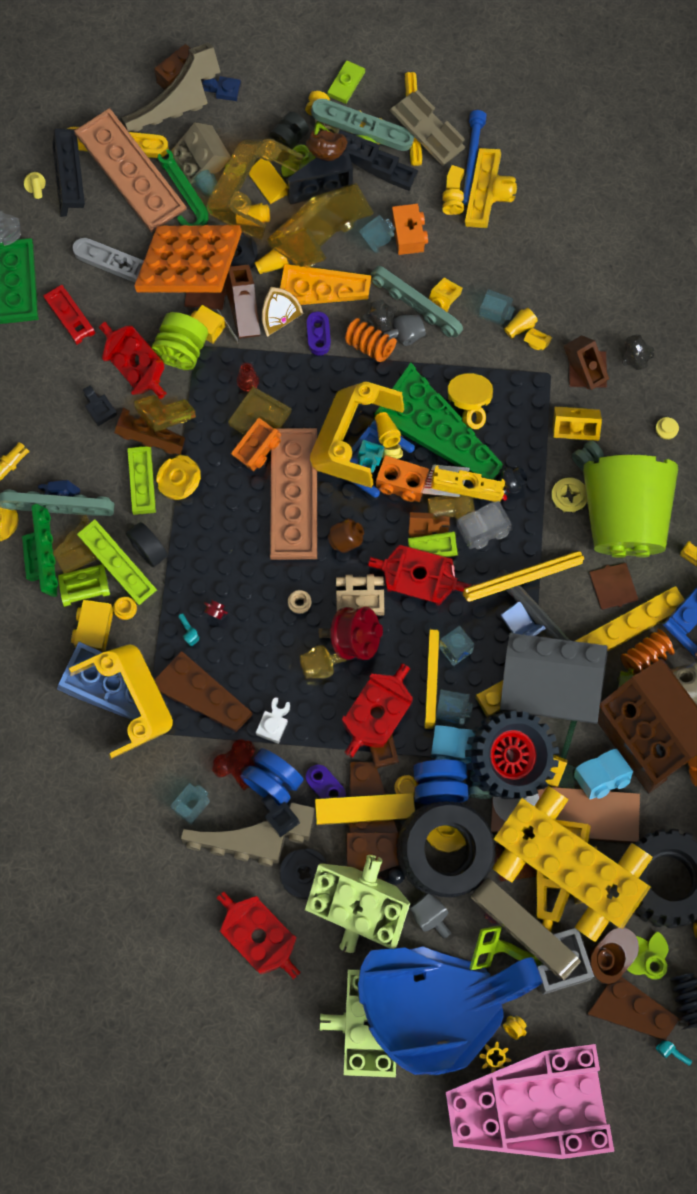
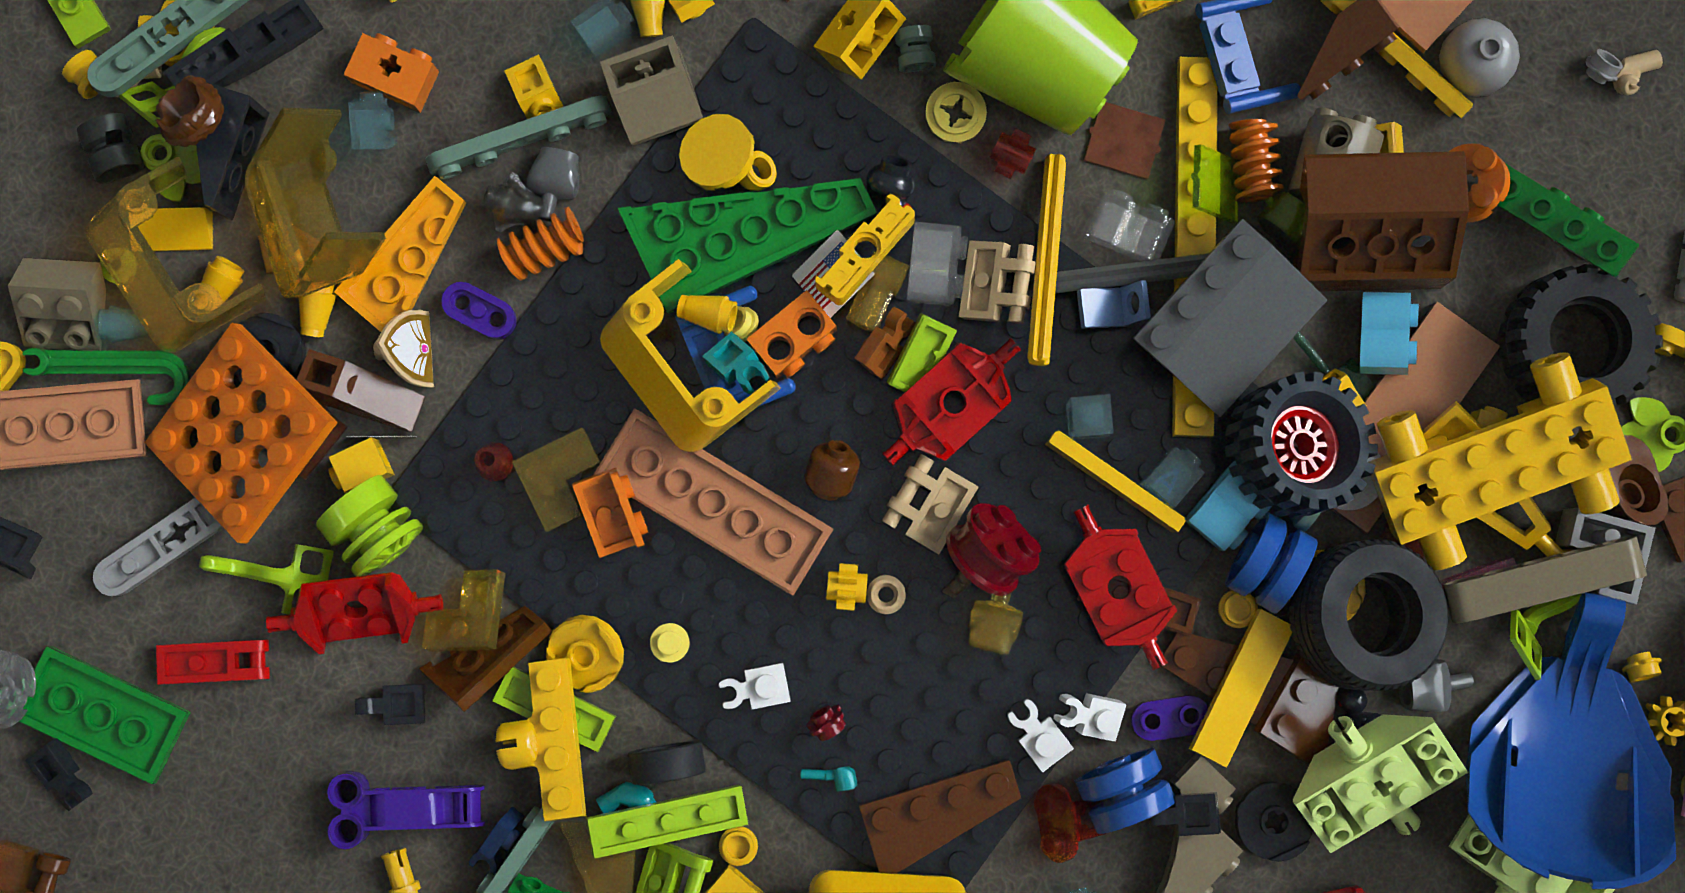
camera: 60 degrees left, 15 degrees up
(47, 435) = (401, 808): none -> dark purple piece
(118, 537) = (627, 795): none -> teal arm
(123, 482) = (549, 740): none -> yellow plate
(130, 320) = (287, 578): none -> lime piece
(209, 512) = (669, 642): none -> light yellow plate
(214, 569) = (763, 686): none -> white plate
(291, 578) = (846, 587): none -> yellow gear
(302, 746) = (1095, 718): none -> white plate
(480, 345) = (652, 90): none -> dark tan slope
(493, 554) = (986, 279): none -> tan plate
(567, 532) = (1013, 153): none -> clear red gear
(569, 612) = (1128, 227): none -> clear brick
(620, 638) = (1214, 184): none -> clear neon green piece

